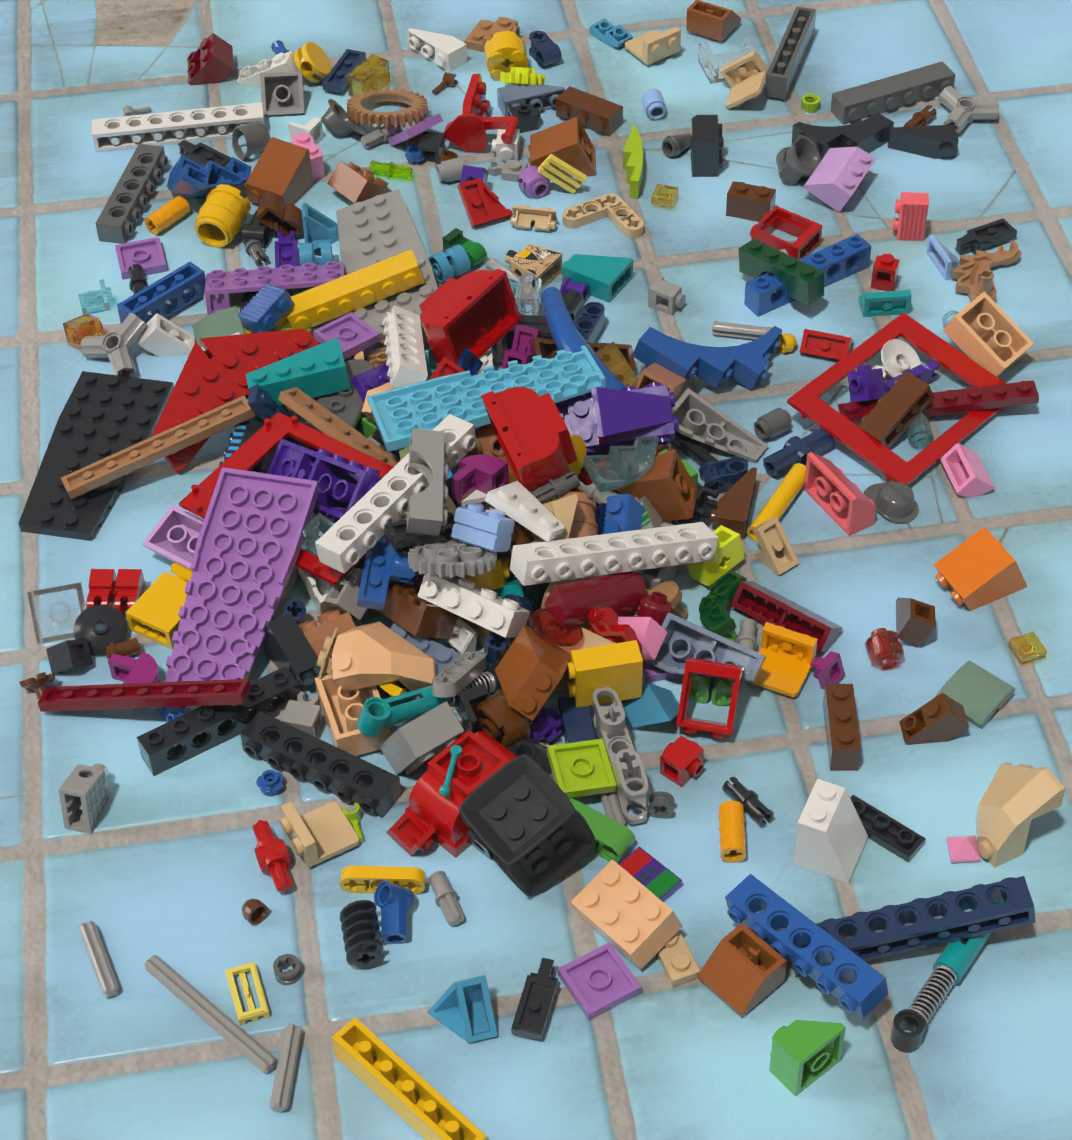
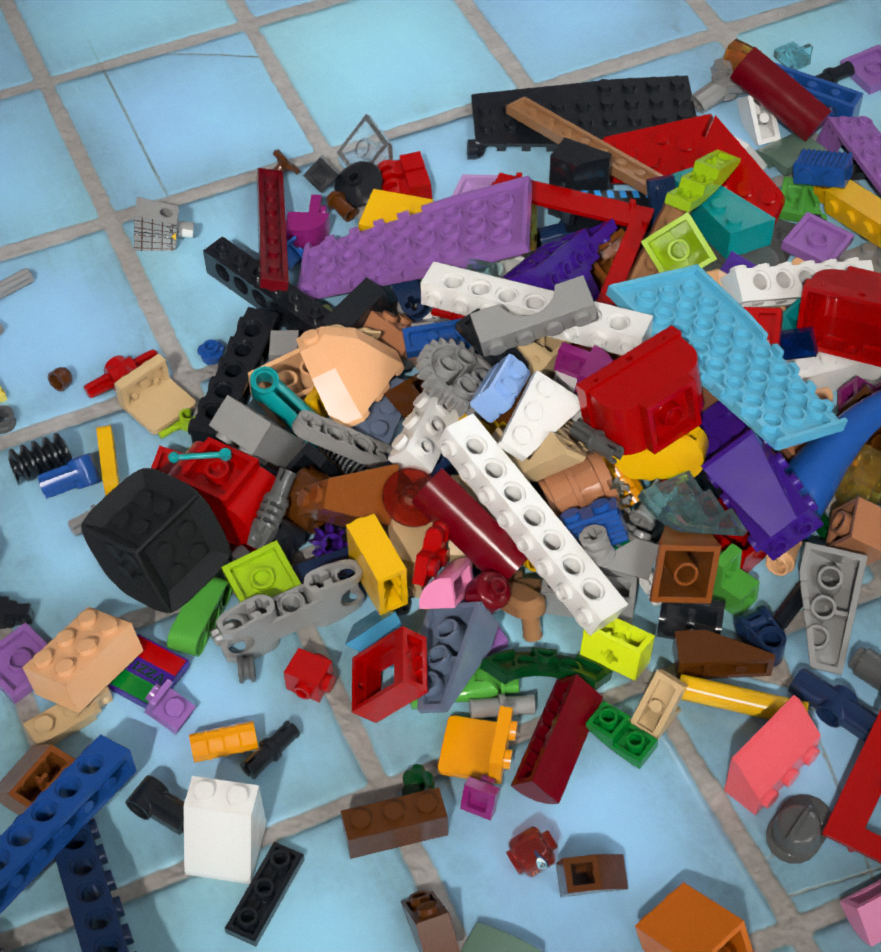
camera: 75 degrees right, 5 degrees up
(97, 538) = (475, 149): none -> black hinge
(170, 305) = (780, 94): none -> dark red brick
(199, 452) = (579, 168): none -> black slope
(280, 364) = (703, 181): none -> lime slope
(342, 402) = (678, 245): none -> lime slope
(515, 738) = (271, 510): none -> dark grey hinge
(642, 520) = (597, 544): none -> light grey bush
(686, 865) = (168, 707): none -> medium lavender bracket
(790, 879) = (154, 801): none -> black piece
(791, 578) = (619, 735): none -> green slope
(813, 711) = (417, 780): none -> dark green plant

